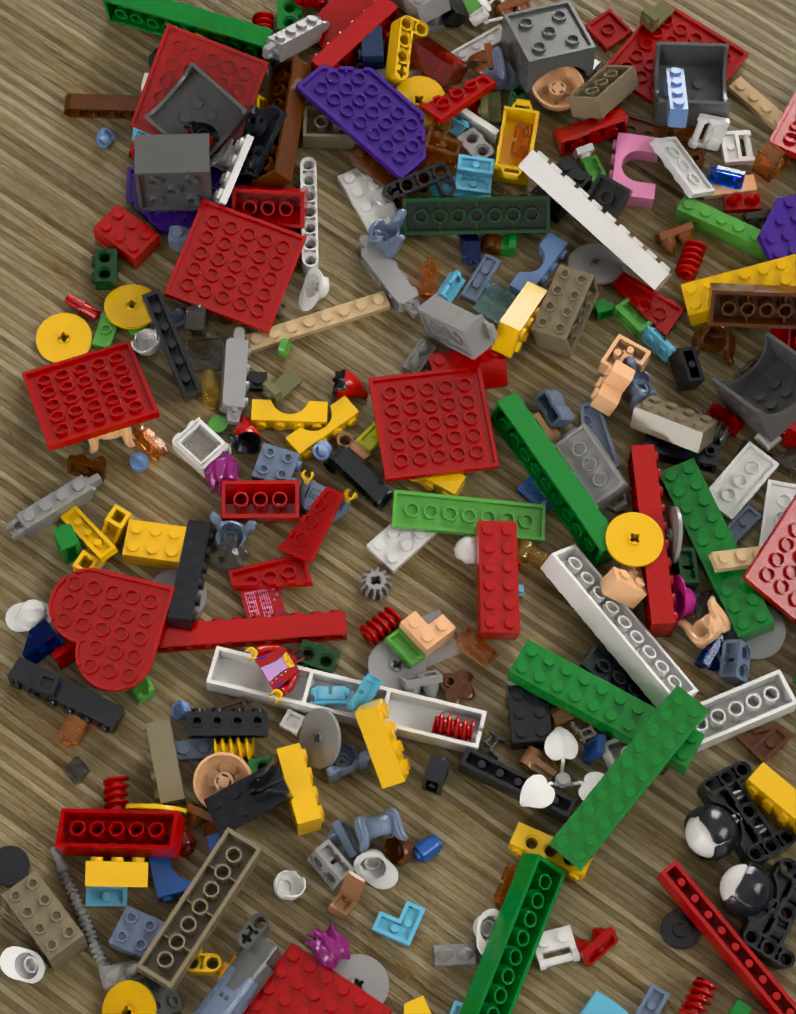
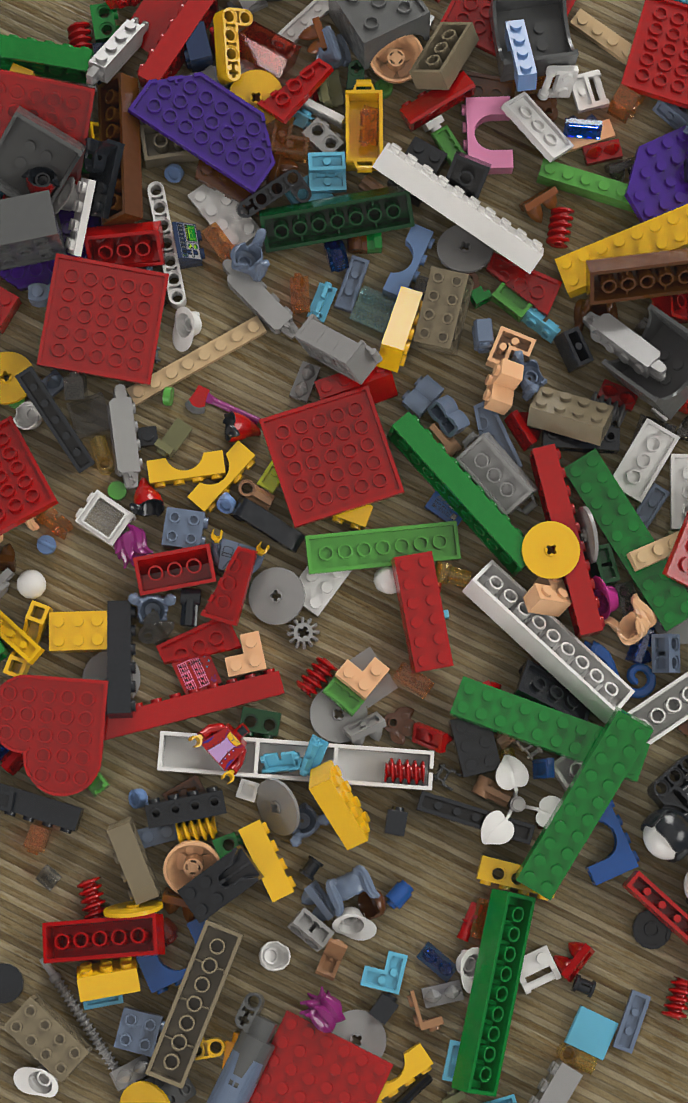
camera: 10 degrees left, 15 degrees up
(116, 493) = (31, 584): none -> white hair
(269, 537) = (190, 601): none -> black piece
(317, 354) = (201, 396): none -> piece
(318, 598) = (251, 660): none -> light nougat brick
(328, 155) = (173, 173): none -> medium blue tile
(329, 217) = (187, 245): none -> slope
(342, 807) = (311, 868): none -> black bush
(358, 218) = (218, 241): none -> clear orange hinge
(363, 556) = (286, 607): none -> light grey piece
(392, 956) = (384, 1007): none -> black brick
(437, 980) = (431, 1023): none -> medium nougat bracket
(454, 922) = (437, 961): none -> clear blue tile
(485, 700) = (430, 737): none -> red tile
(487, 898) = (464, 932): none -> red axle
(530, 386) = (422, 396): none -> sand blue brick
(544, 115) = (385, 86): none -> bright green tile
(599, 340) = (482, 335): none -> sand blue brick
(601, 971) = (583, 986): none -> black bush
(622, 432) = (518, 426): none -> red tile
(660, 852) = (621, 858): none -> blue arch
(716, 681) = (600, 651): none -> blue plant
(738, 368) = (626, 345): none -> light grey hinge

